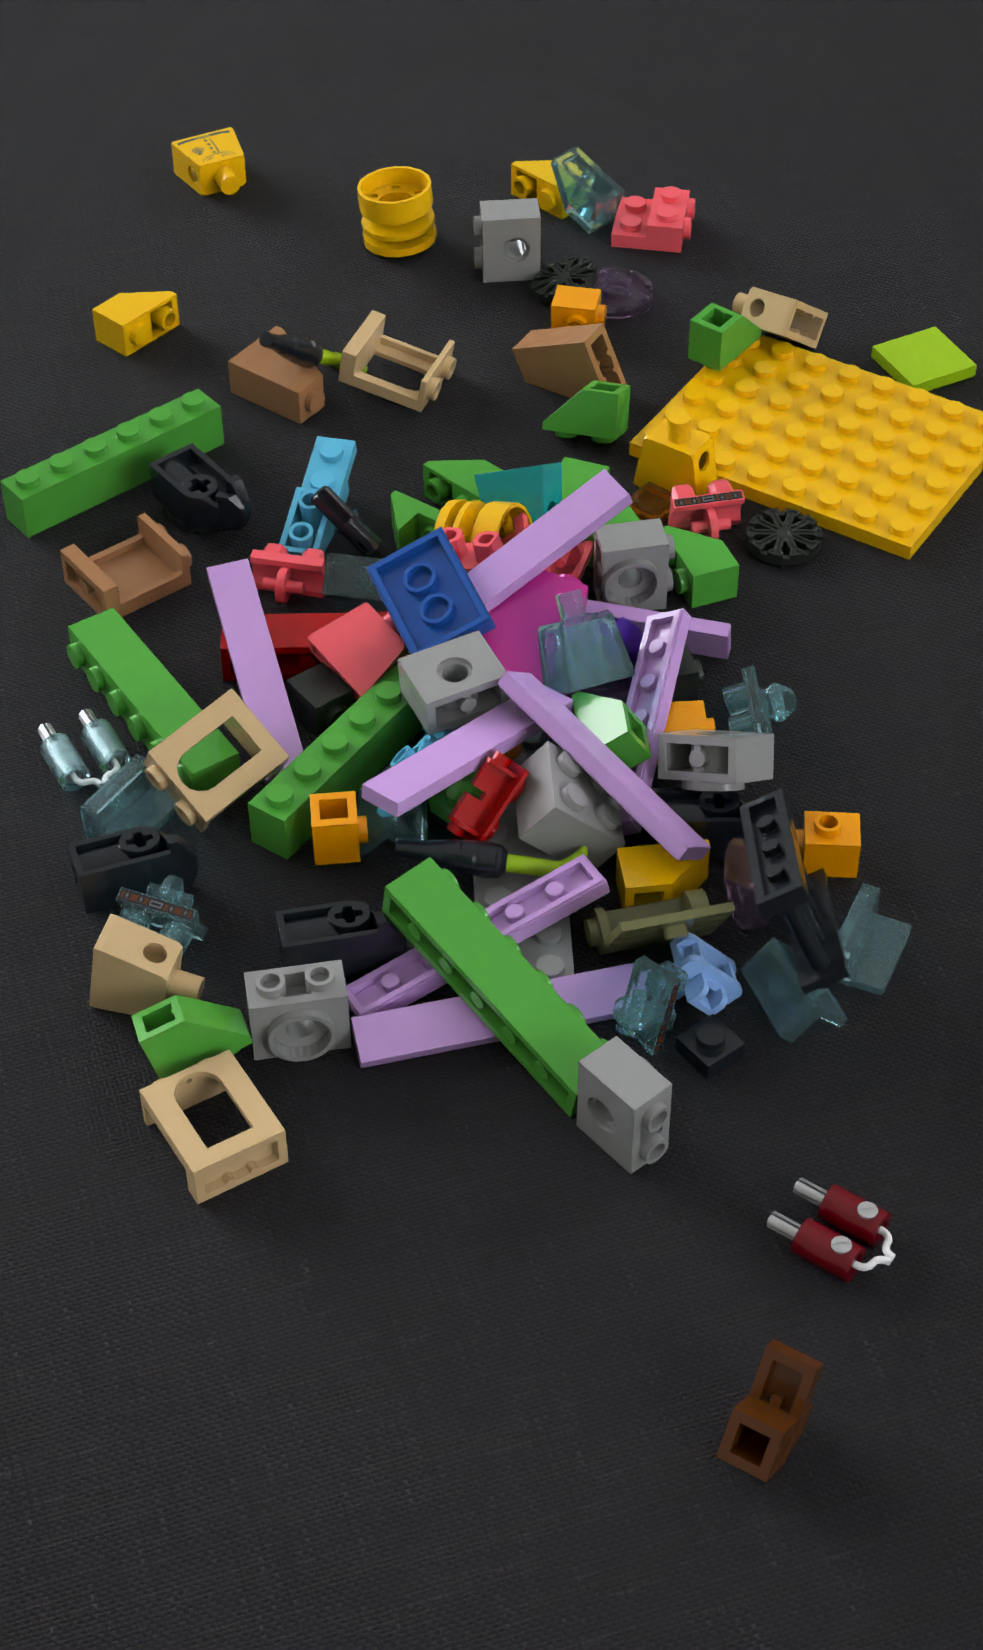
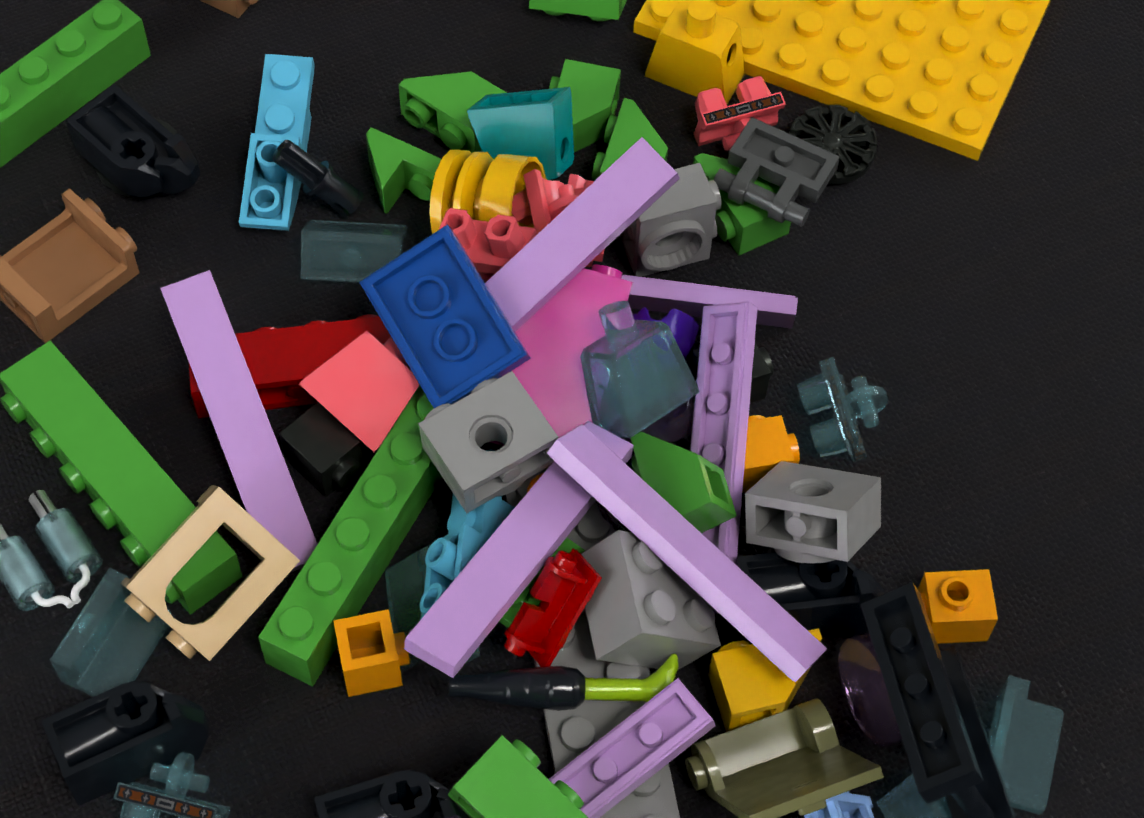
camera: 10 degrees left, 15 degrees up
(288, 573) = (256, 258): coral hips -> none
(651, 502) = (671, 106): clear orange tile -> none
(733, 530) = (781, 160): none -> dark grey plate

